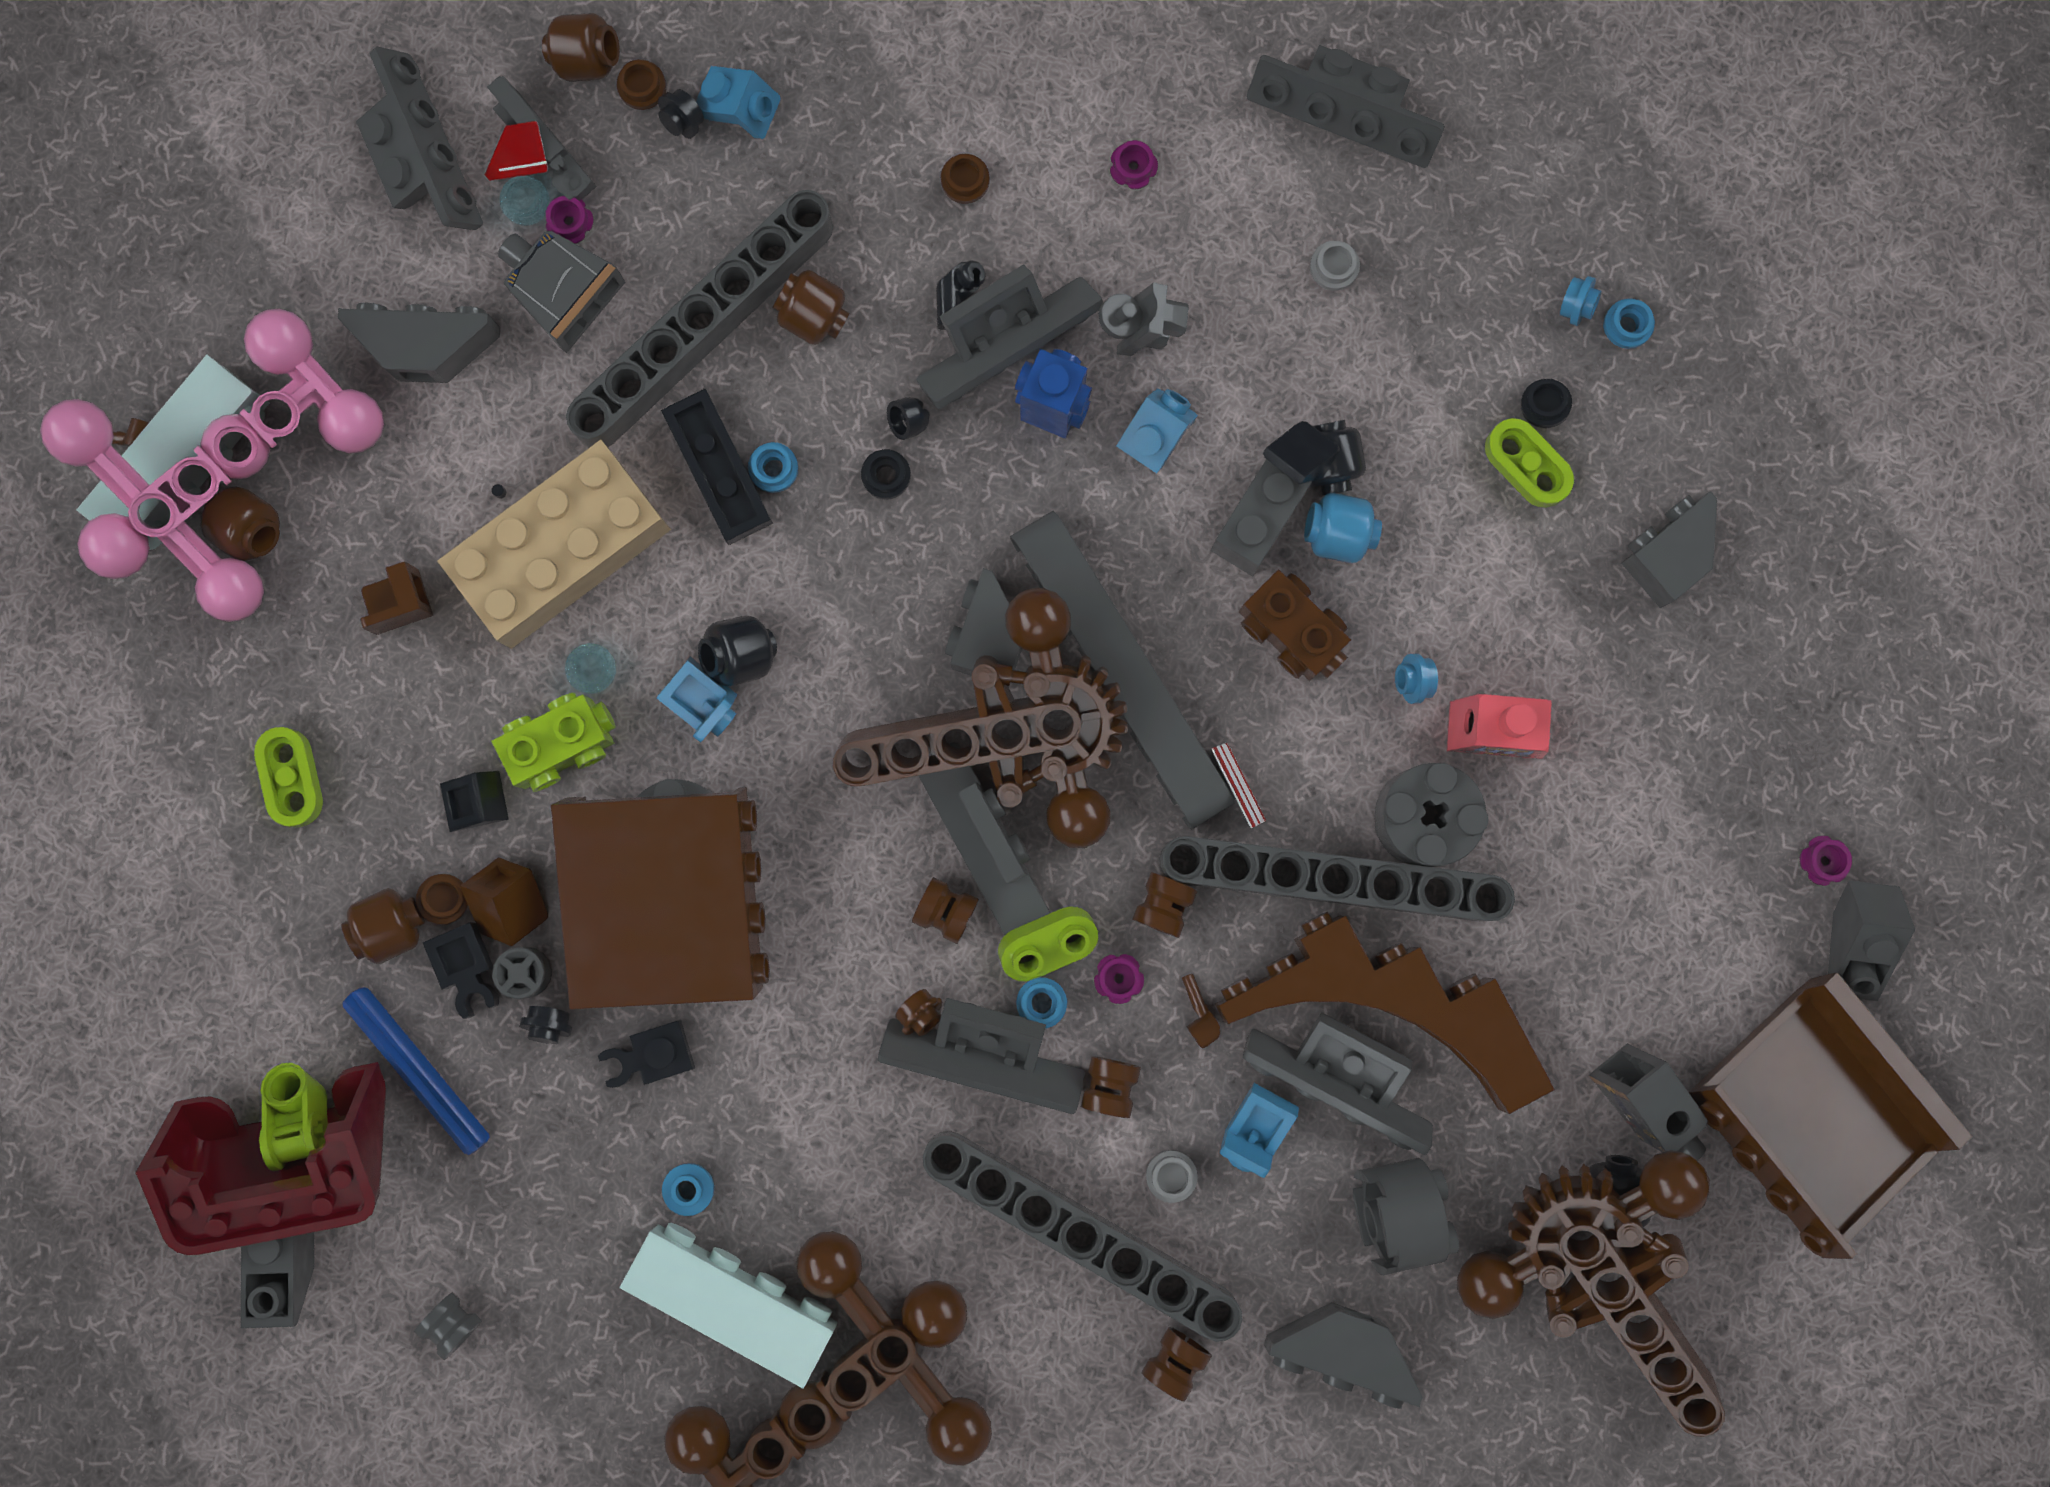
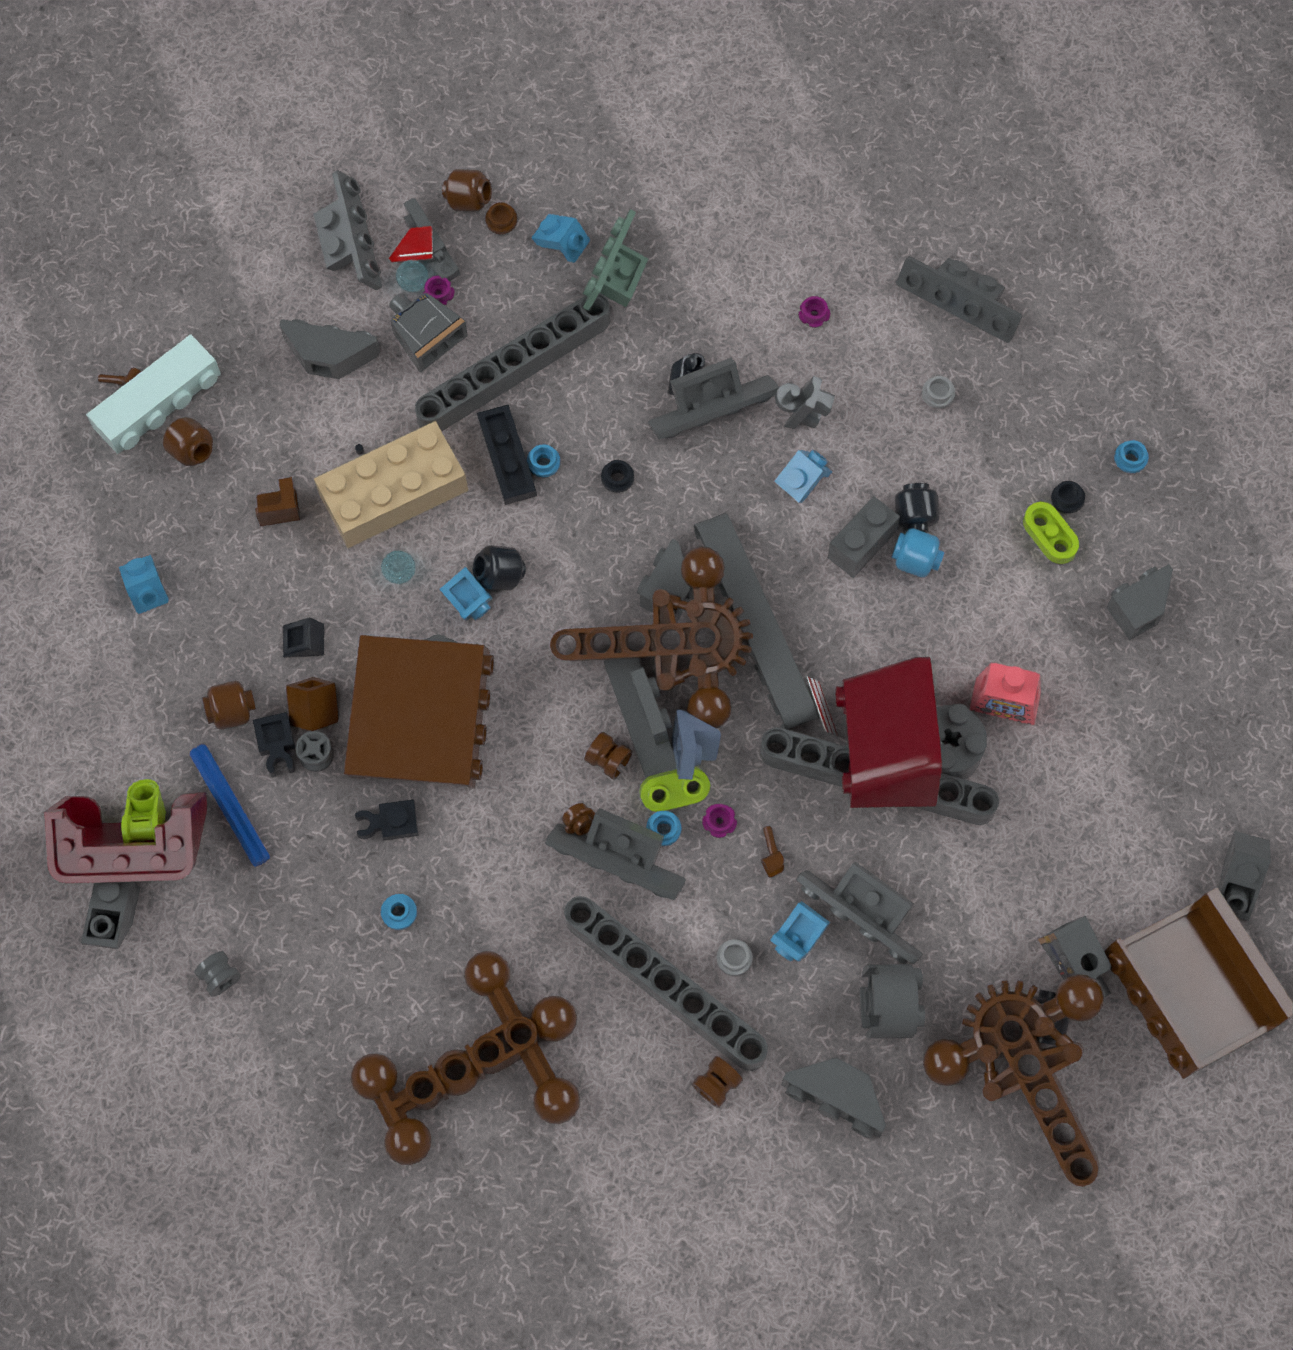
camera: 10 degrees right, 15 degrees down
(119, 544) = (112, 435): bright pink piece -> none
(219, 755) = (143, 584): none -> dark azure bracket
(283, 780) = (184, 605): lime plate -> none
(441, 899) = (270, 696): reddish brown plate -> none
(546, 1024) = (324, 787): black plate -> none
(565, 736) = (366, 607): lime brick -> none
(680, 113) = (523, 238): black plate -> none
(730, 1304) = (413, 989): light aqua brick -> none
(811, 307) = (586, 365): reddish brown head -> none
(834, 145) = (619, 270): none -> sand green bracket
(912, 413) = (640, 440): black hinge -> none
(965, 178) = (702, 304): reddish brown plate -> none
(1053, 392) = (737, 438): blue brick -> none
(1061, 877) = (693, 742): none -> sand blue slope
(1112, 1075) = (702, 887): reddish brown wheel -> none
(1164, 904) = (759, 775): reddish brown wheel -> none
(1296, 627) = (876, 610): reddish brown brick -> none
(1302, 453) = (896, 497): black slope -> none
(1351, 825) = (892, 736): none -> dark red windscreen
(1416, 678) = (954, 656): dark azure plate -> none
(1470, 1022) = (957, 885): reddish brown arch -> none
(1580, 300) = (1099, 436): dark azure plate -> none
(1839, 860) = (1225, 811): magenta plate -> none

